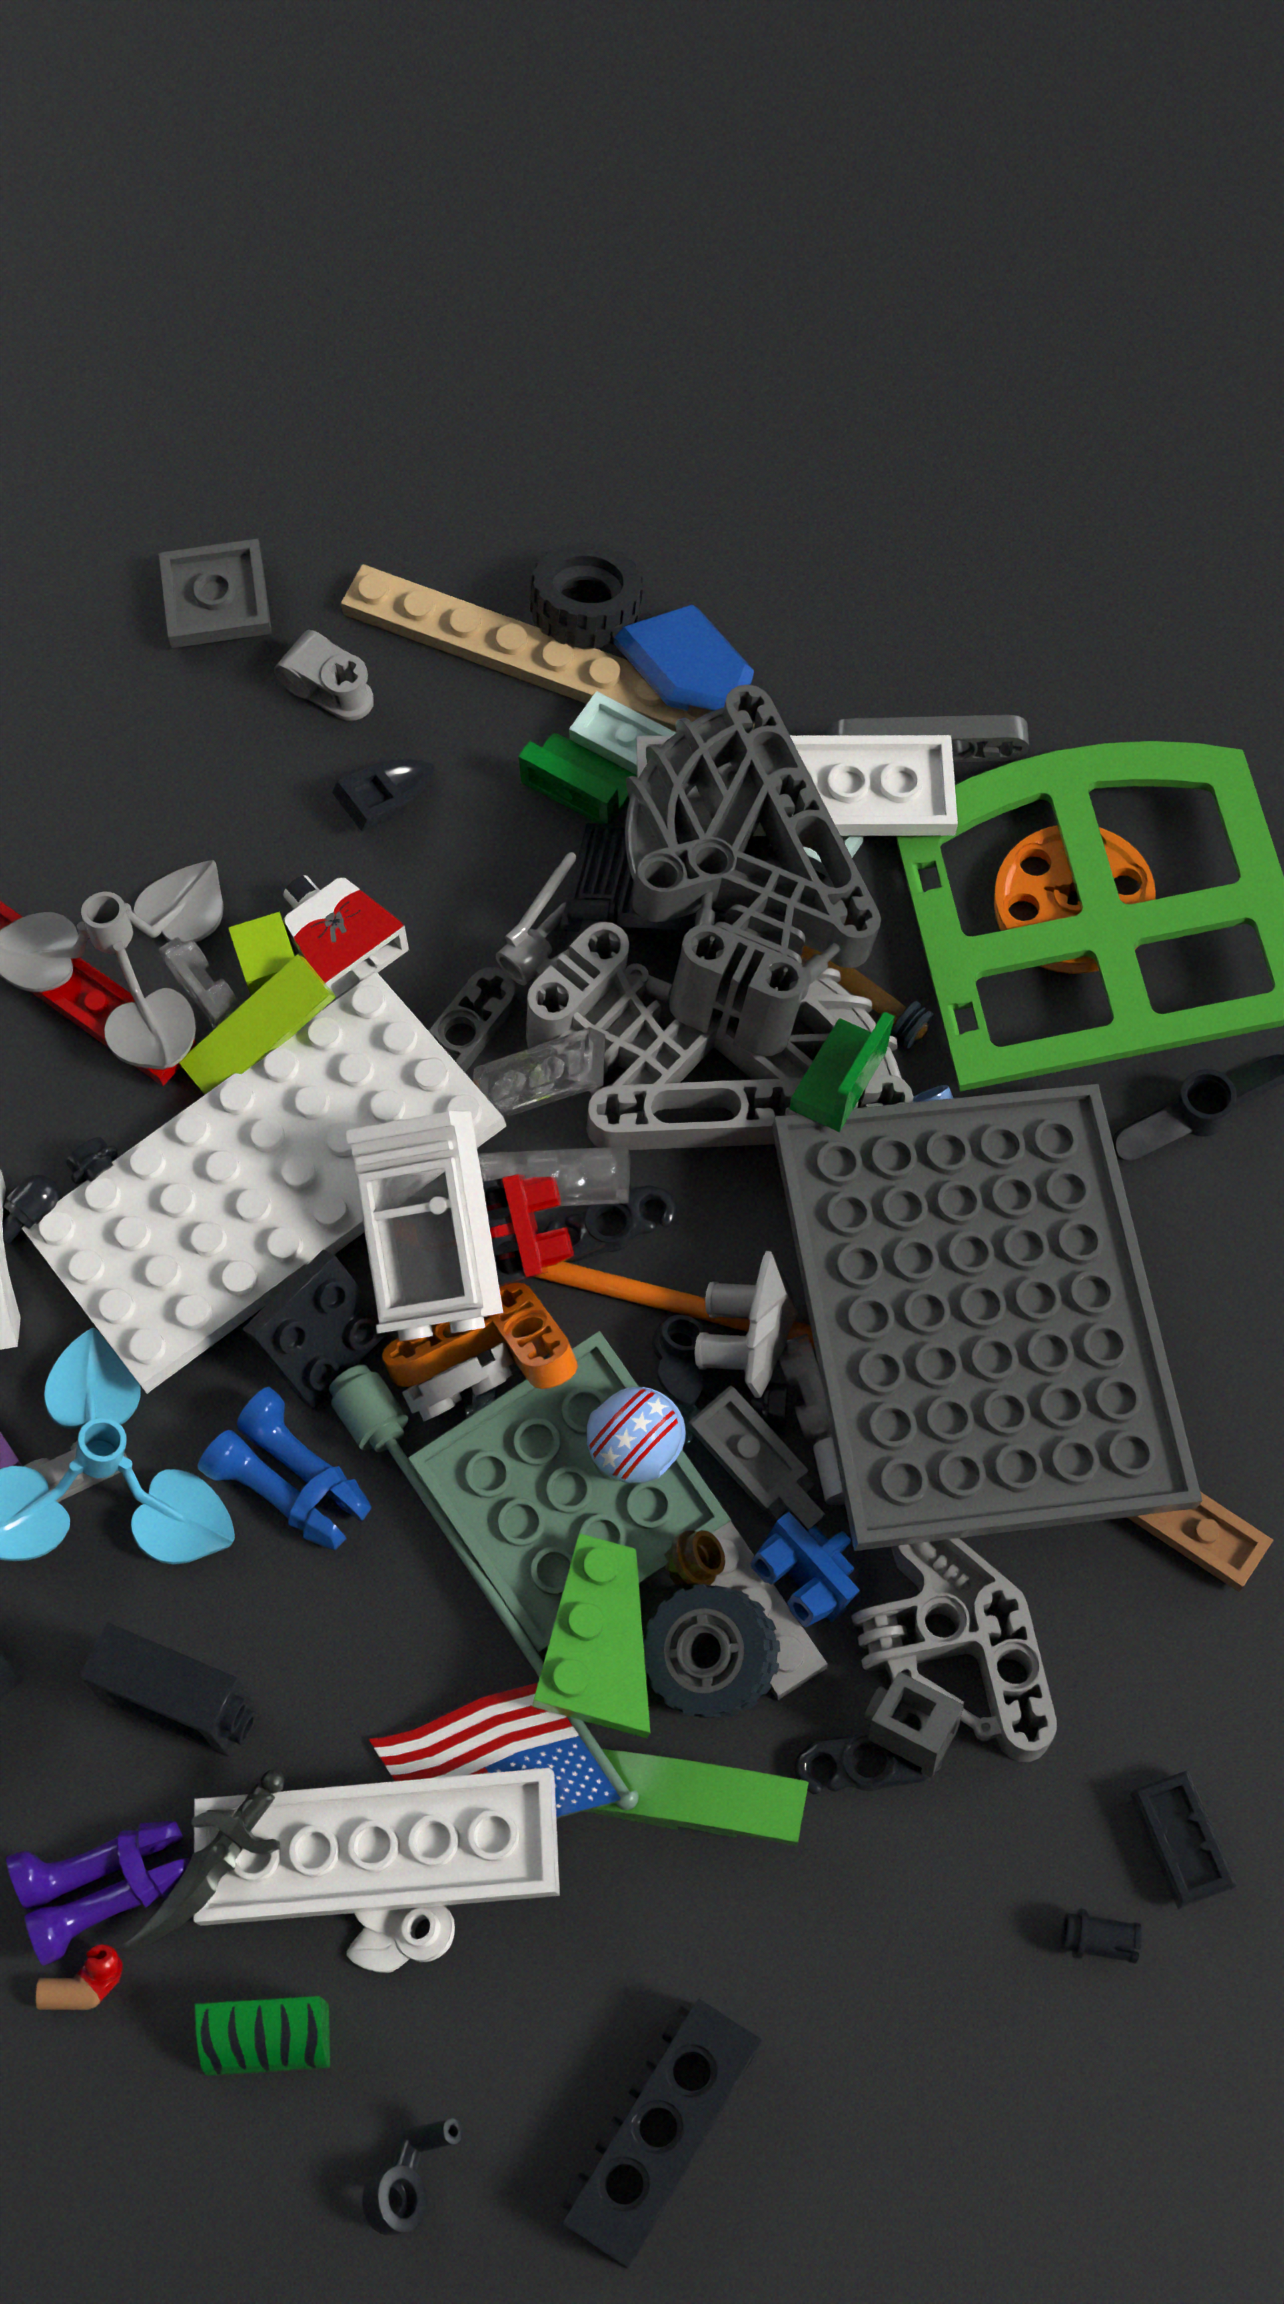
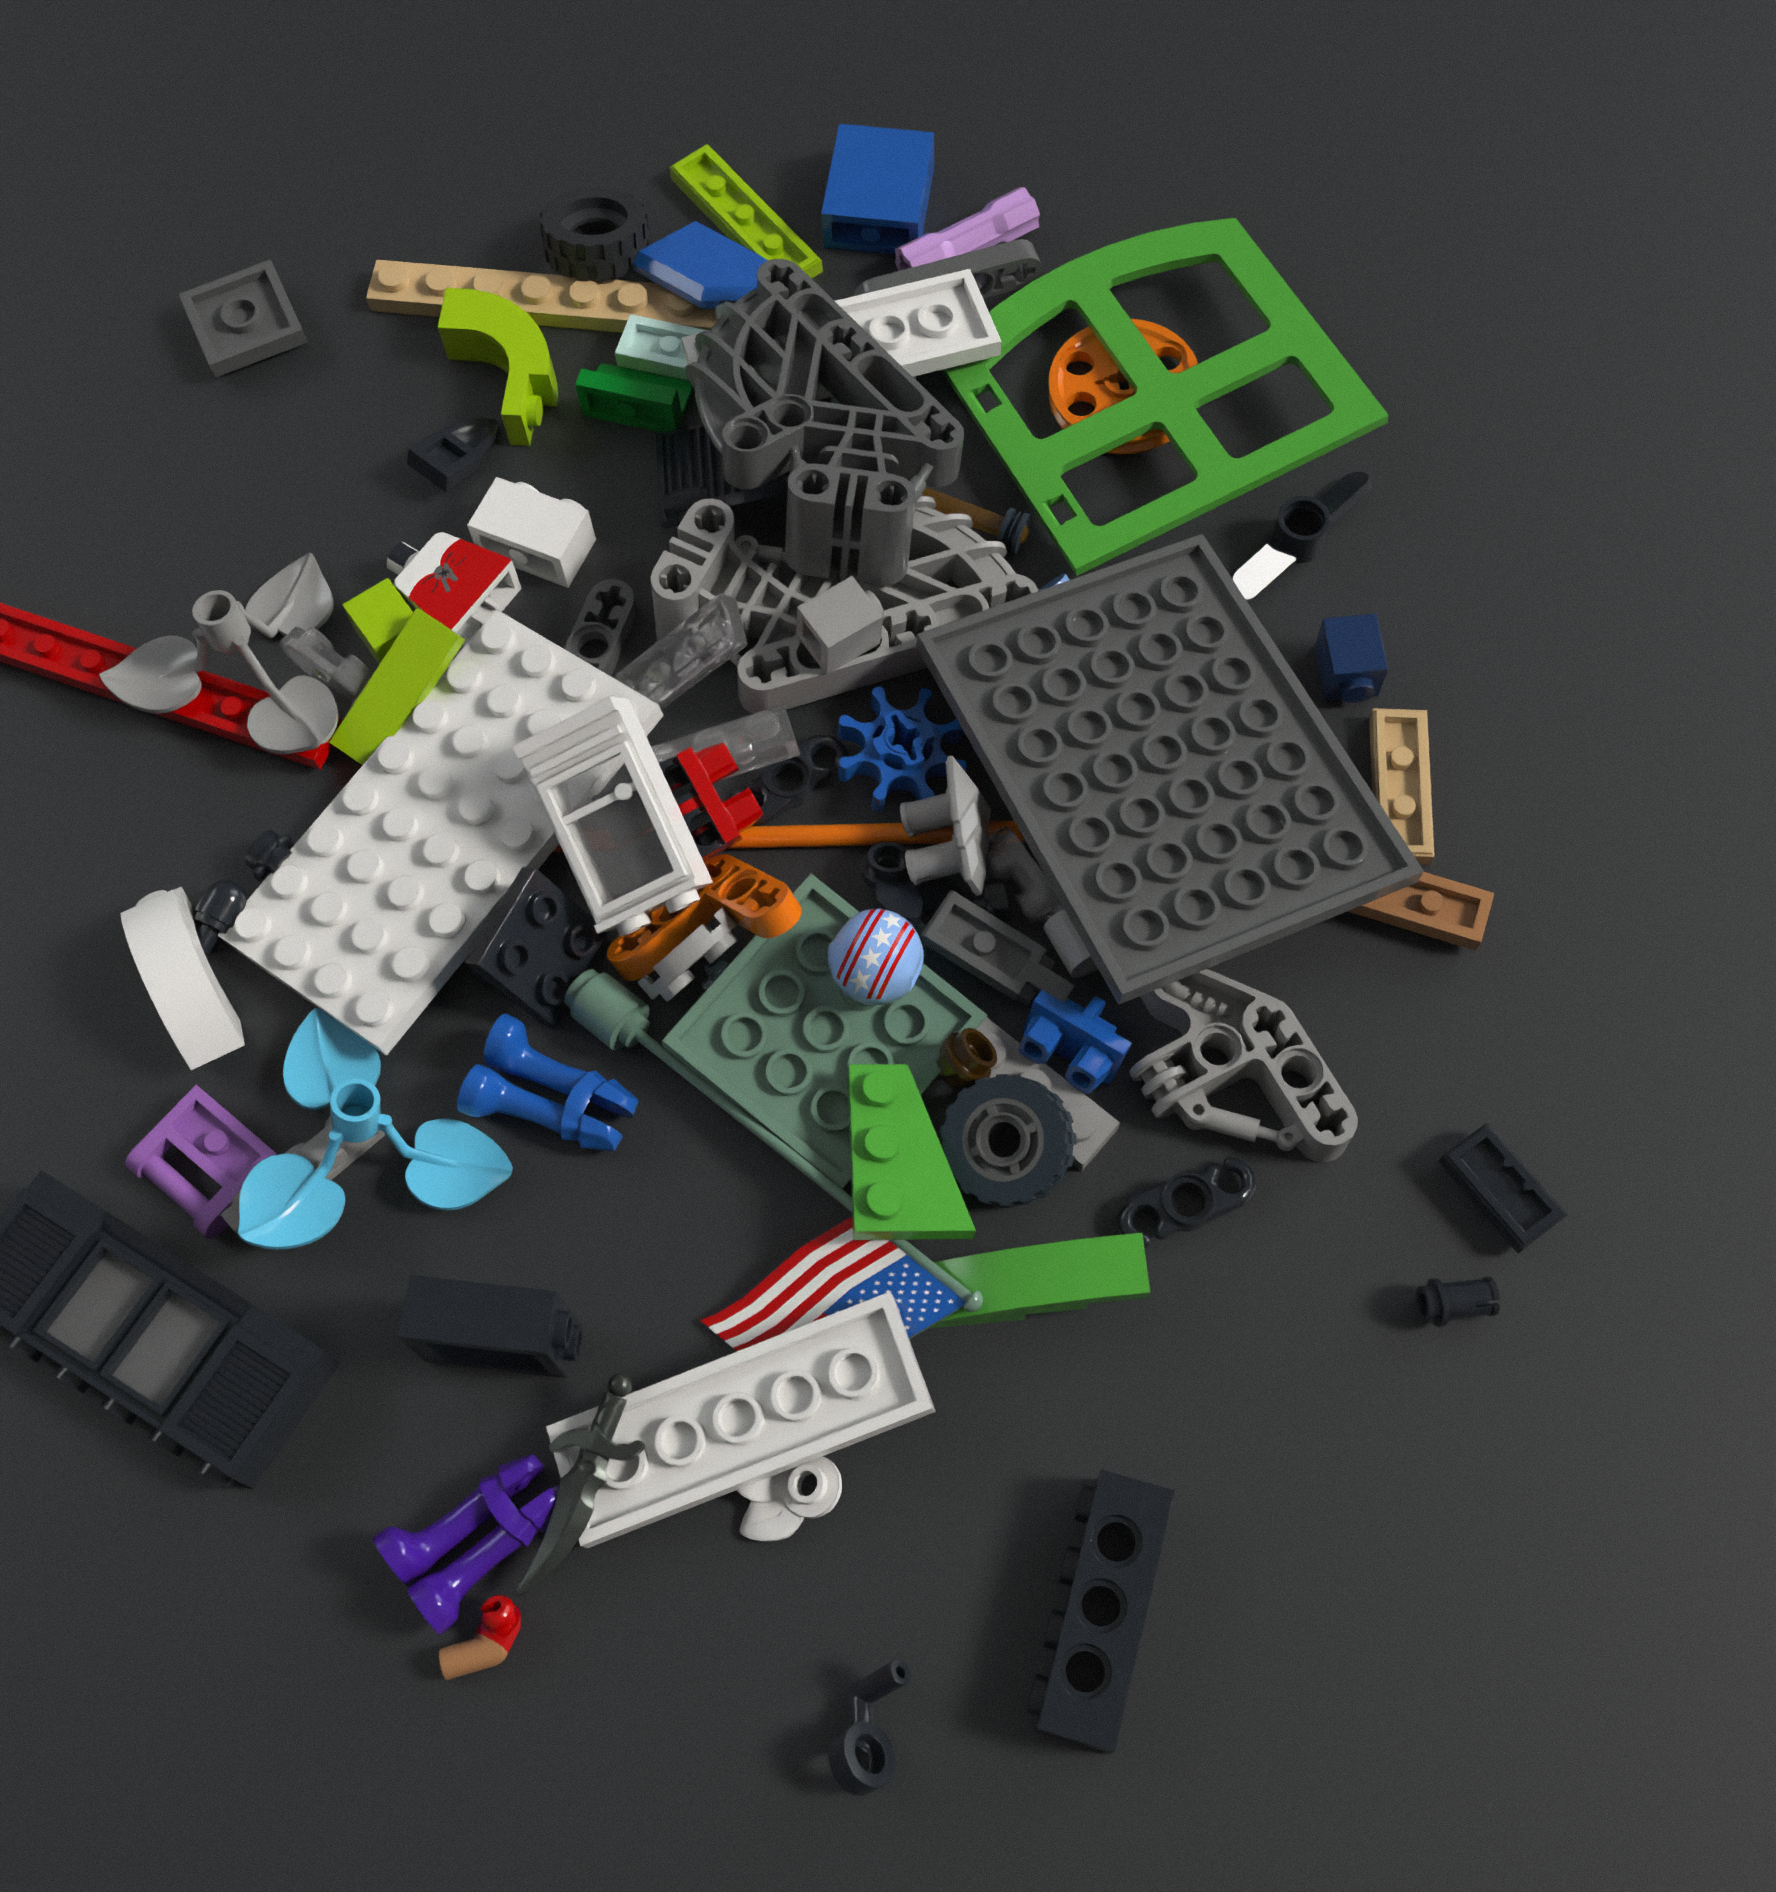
camera: 15 degrees left, 0 degrees up
(263, 2035) = (681, 1636): green brick -> none
(326, 676) = (371, 364): light grey piece -> none
(435, 896) = (533, 530): none -> white brick
(460, 674) = (498, 332): none -> lime arch
(527, 948) = (636, 551): light grey plant -> none
(701, 1086) = (840, 624): none -> light grey brick
(713, 1237) = (889, 763): none -> blue gear
(744, 610) = (740, 210): none -> lime tile
(841, 1072) = (967, 578): green panel -> none
(887, 619) = (877, 188): none -> blue brick
(922, 1706) = (1221, 1149): dark grey brick -> none
(999, 686) = (996, 223): none -> lavender axle
(1210, 1254) = (1351, 658): none -> dark blue brick
(1223, 1396) = (1403, 775): none -> tan tile

